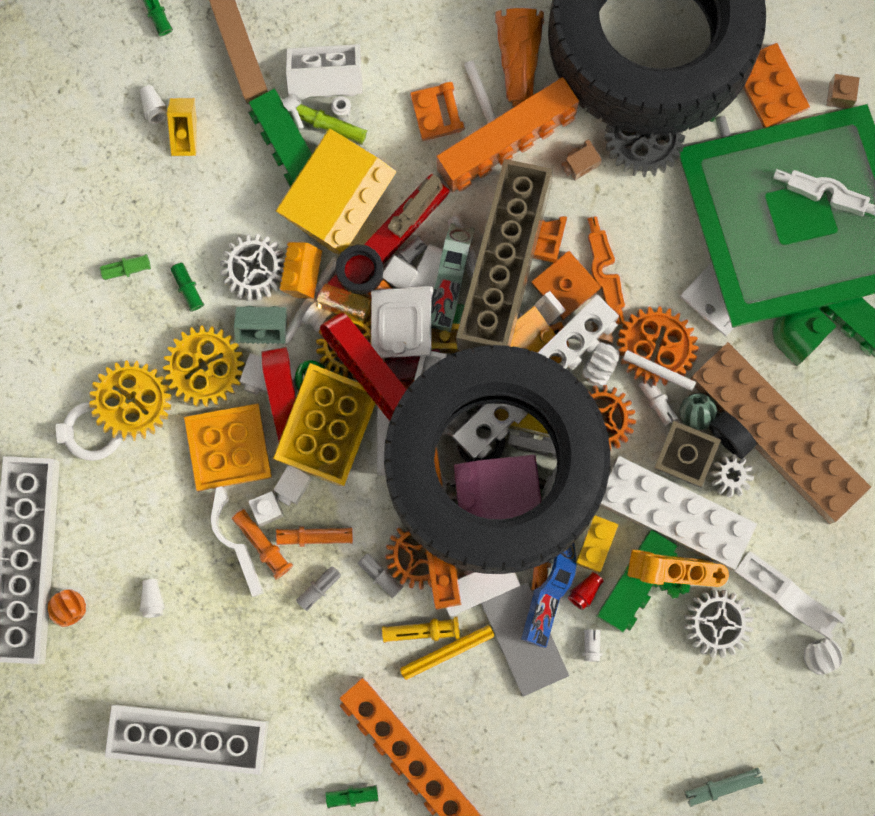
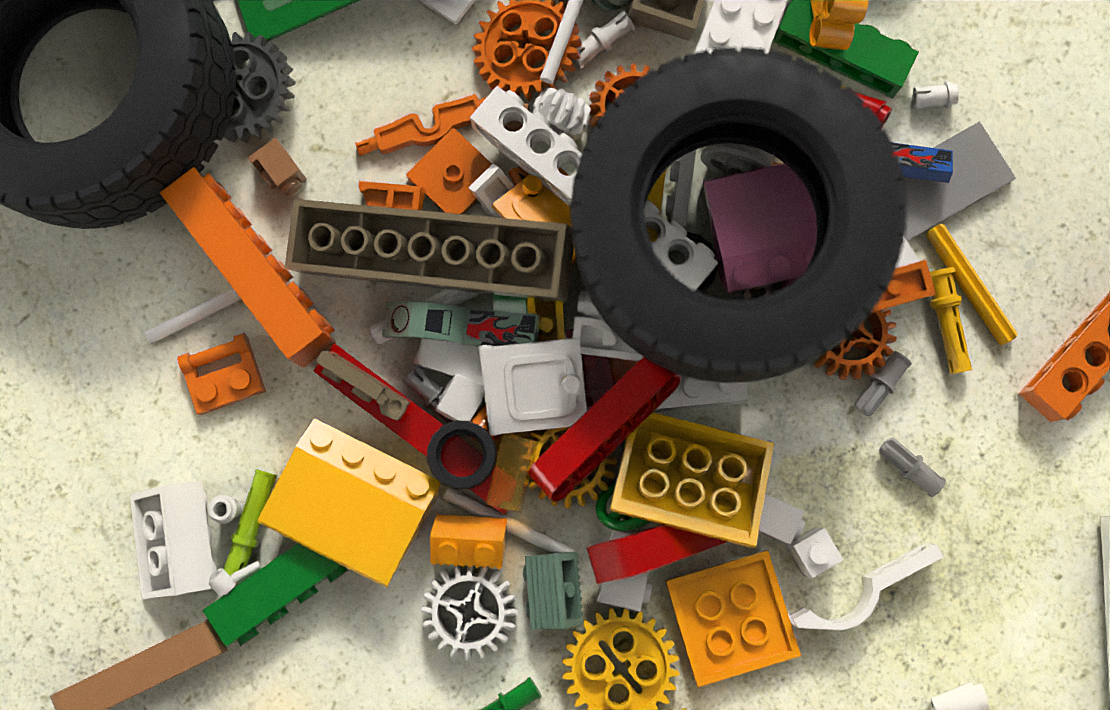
camera: 95 degrees left, 0 degrees up
(268, 553) = (872, 541): orange pin -> none
(314, 536) = (840, 481): orange pin -> none
(316, 316) = (533, 512): white wheel -> none
(519, 46) = (122, 265): orange cone -> none

